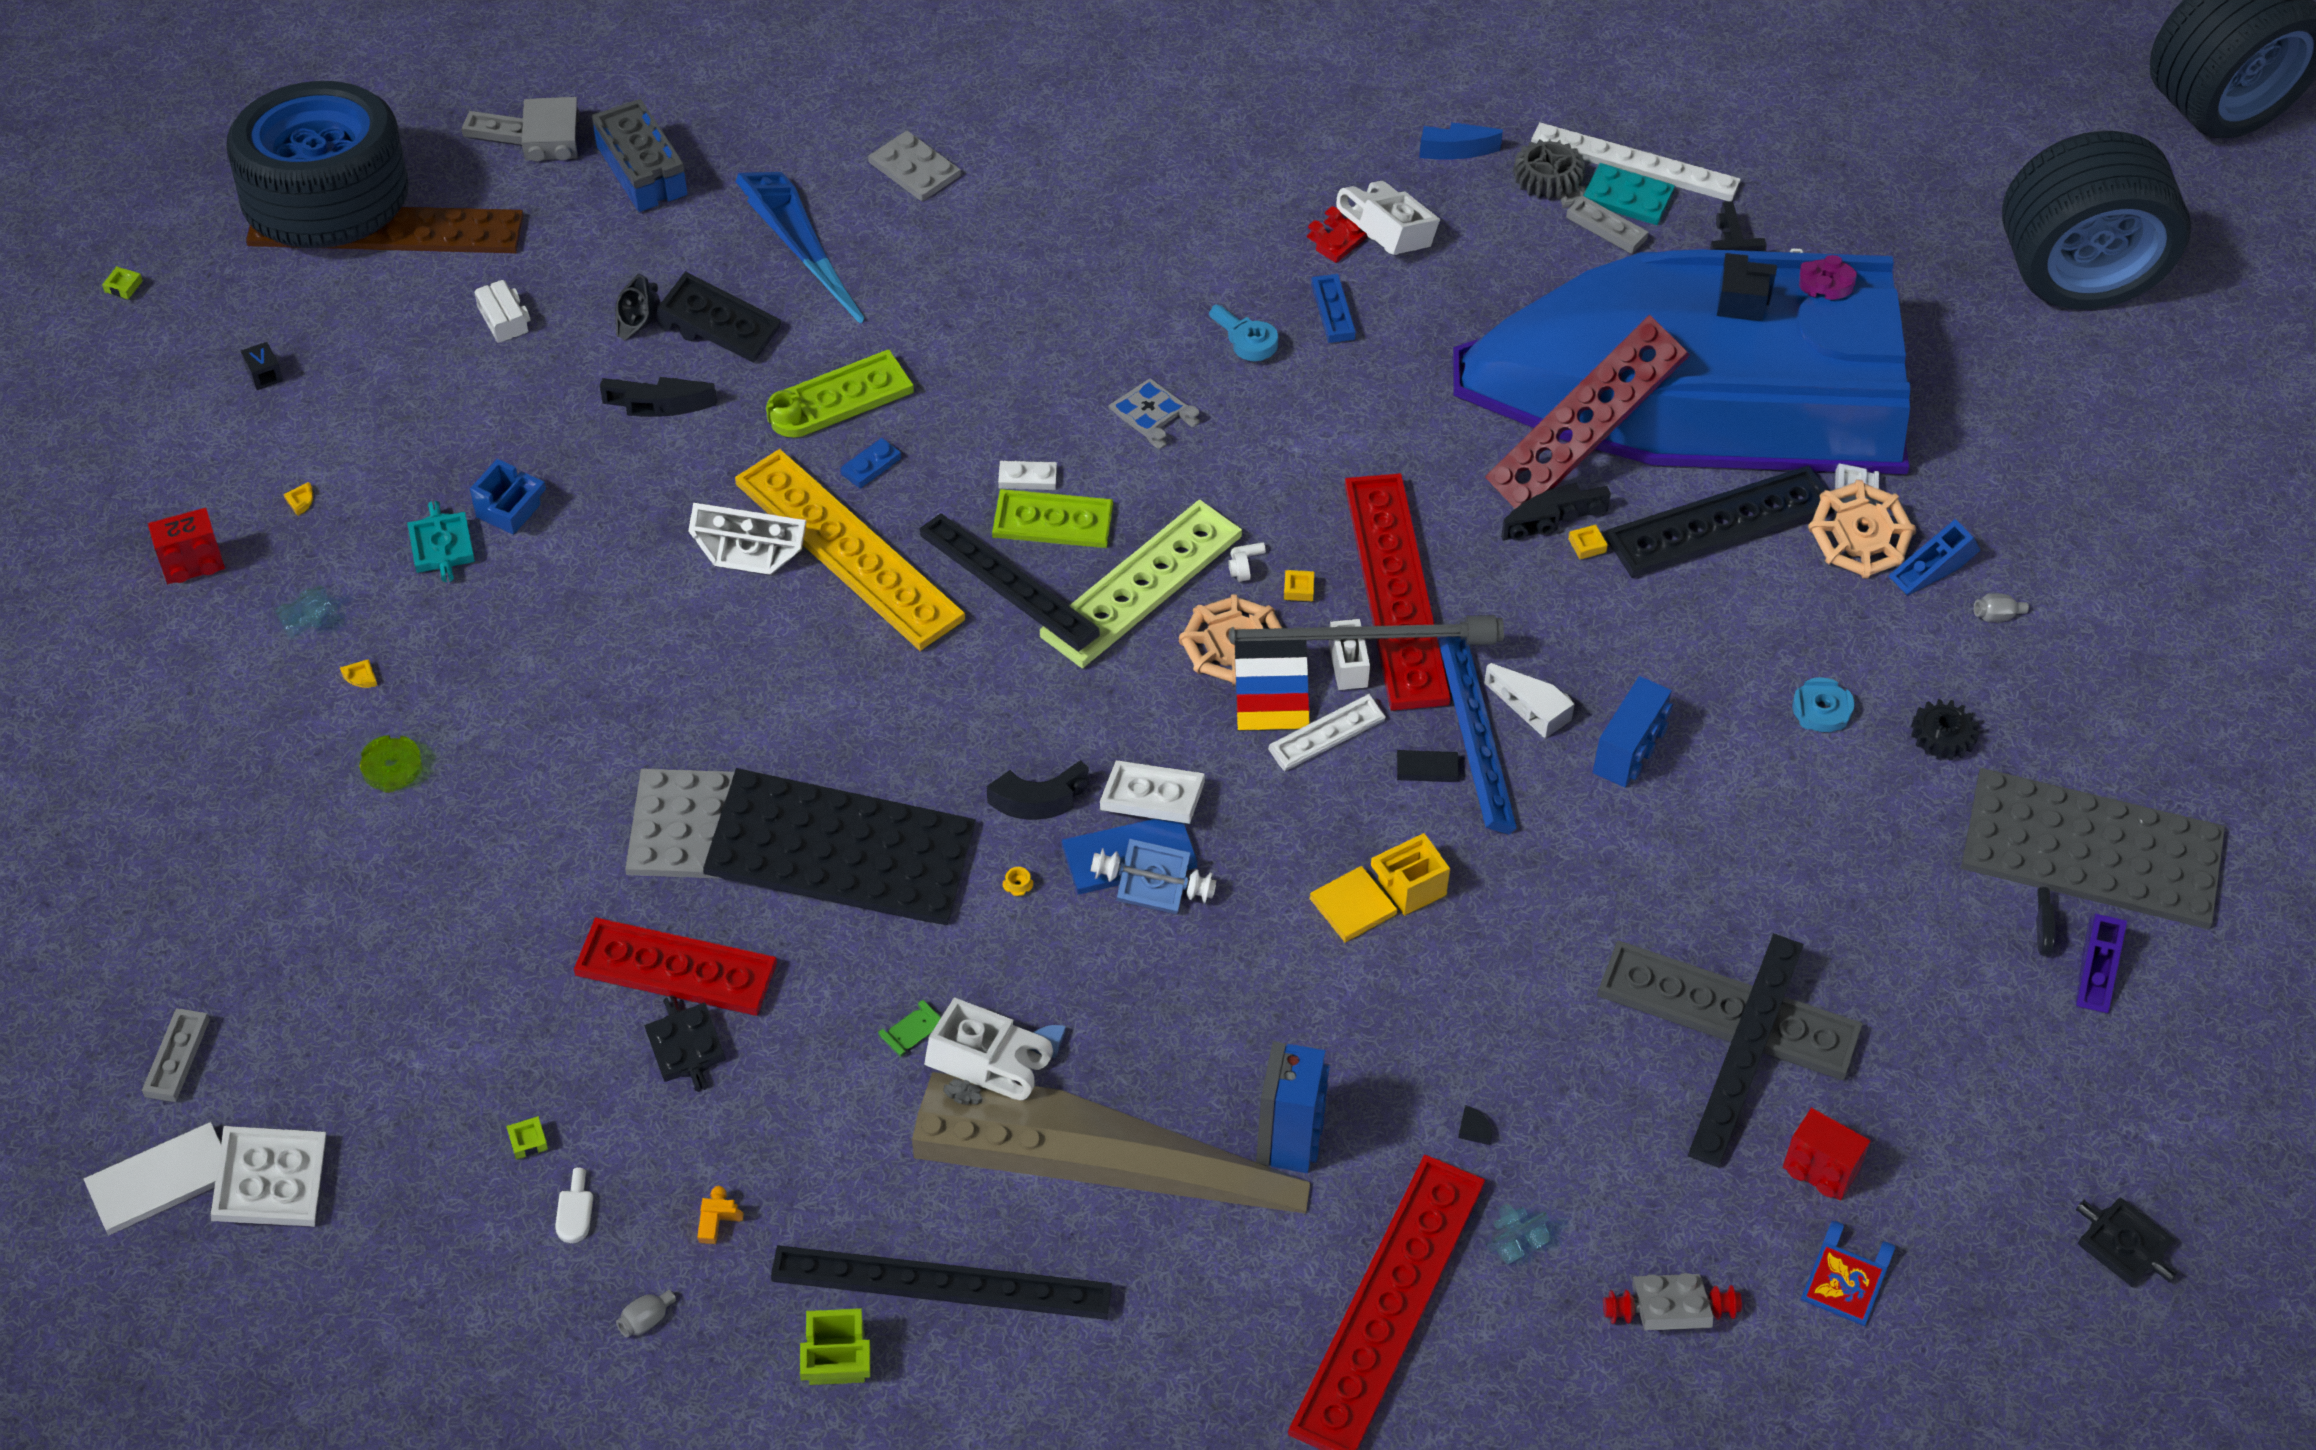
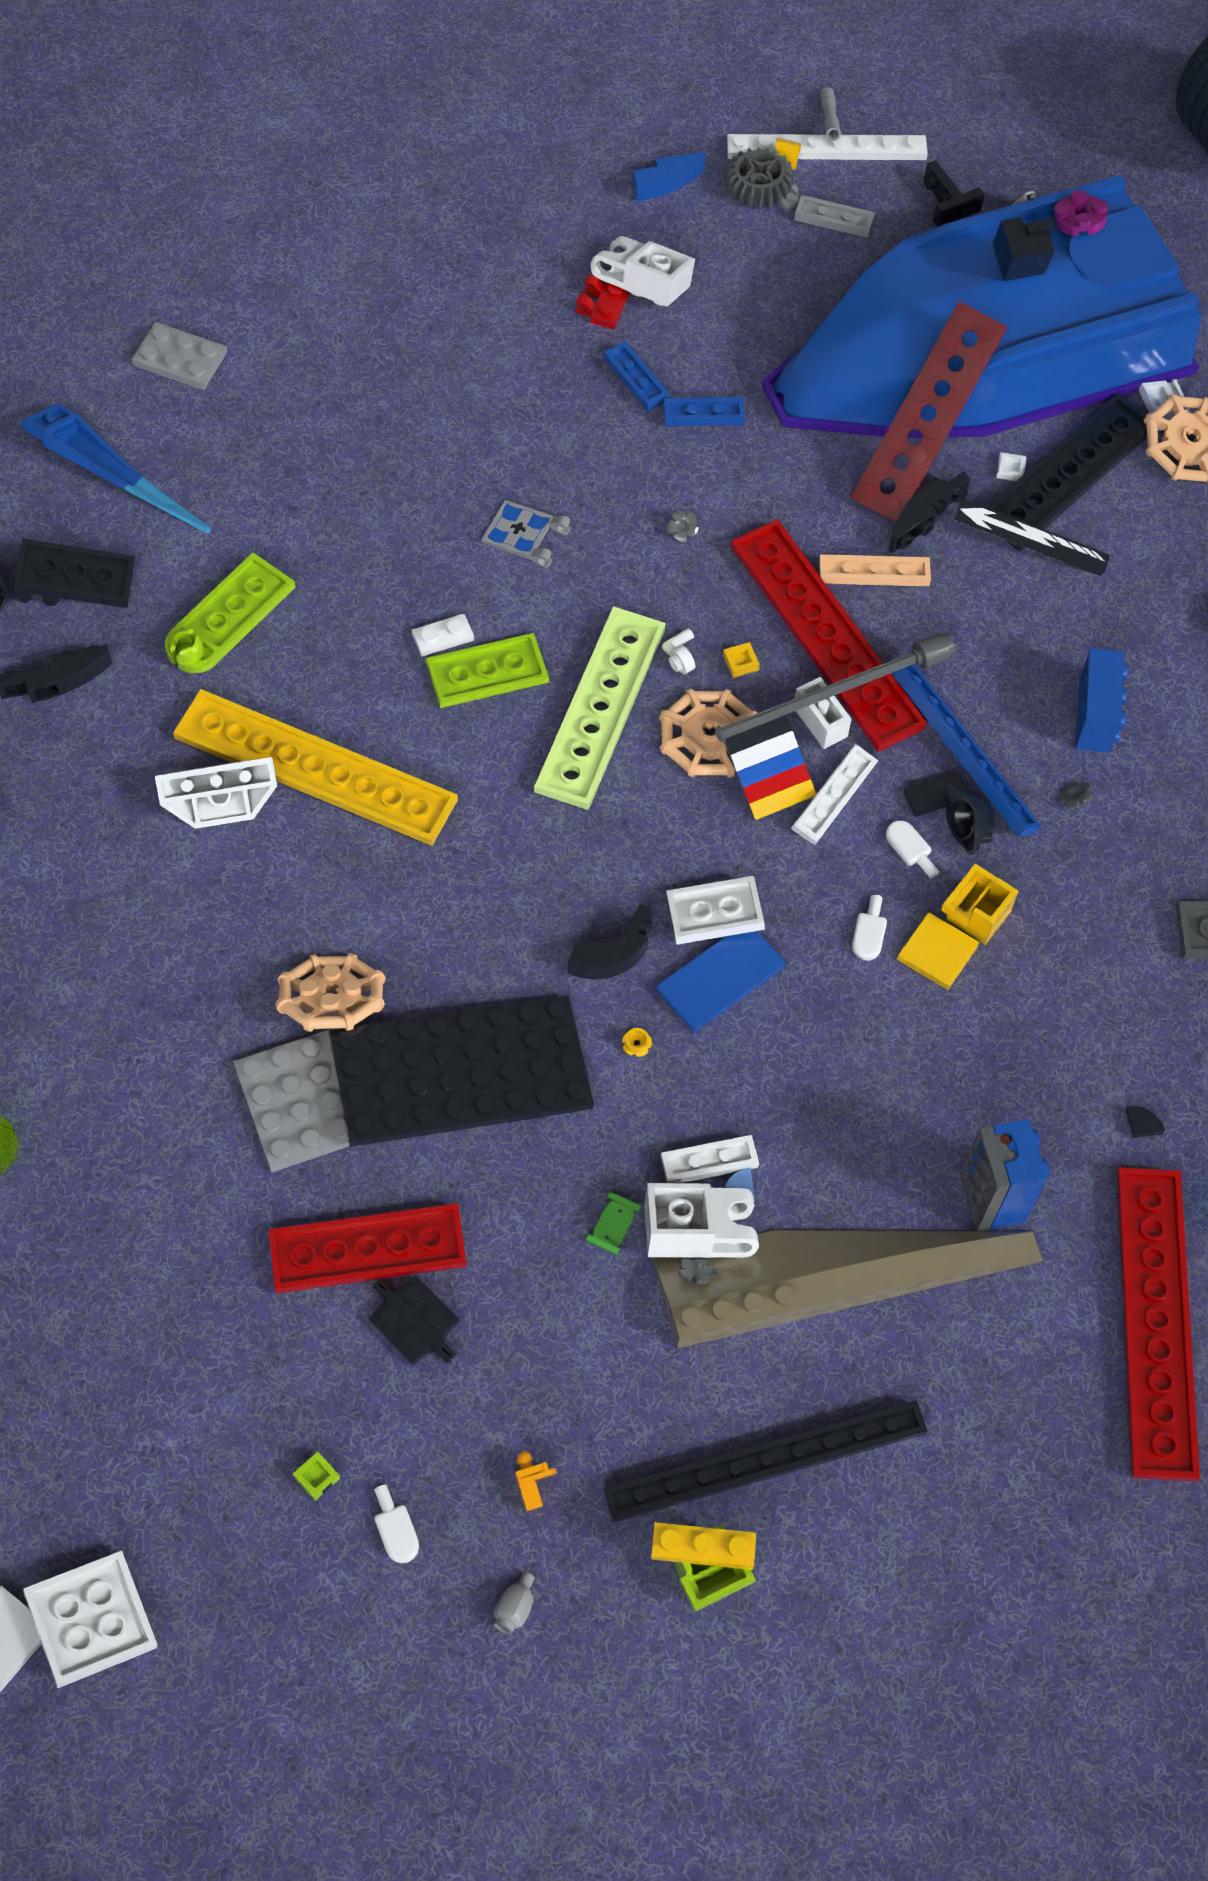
camera: 25 degrees left, 10 degrees up
(759, 735) = (318, 989): none -> light nougat plate
(832, 1318) = (703, 1546): none -> yellow plate
(870, 463) = (291, 673): blue plate -> none
(1010, 582) = (484, 749): black plate -> none
(1031, 1005) = (709, 1160): none -> white plate
(1153, 876) = (758, 992): medium blue plate -> none
(1250, 338) = (580, 430): dark azure piece -> none
(1295, 864) = (869, 931): none -> white piece
(1306, 451) = (682, 525): none -> dark grey plant
(1377, 803) = (910, 846): none -> white piece
(1382, 358) = (704, 411): none -> blue plate
(1446, 795) = (968, 818): none -> black hat
(1474, 548) = (875, 570): none -> light nougat plate
(1534, 700) = (996, 698): white slope -> none
(1568, 811) = (1076, 794): none -> dark grey plant
(1587, 542) = (965, 534): yellow plate -> none
(1591, 154) = (789, 149): none -> yellow tile
(1629, 193) = (837, 179): teal plate -> none
(1648, 137) = (831, 123): none -> light grey piece
(1648, 567) = (1031, 537): none -> black sticker
(1664, 499) = (1010, 466): none -> white tile

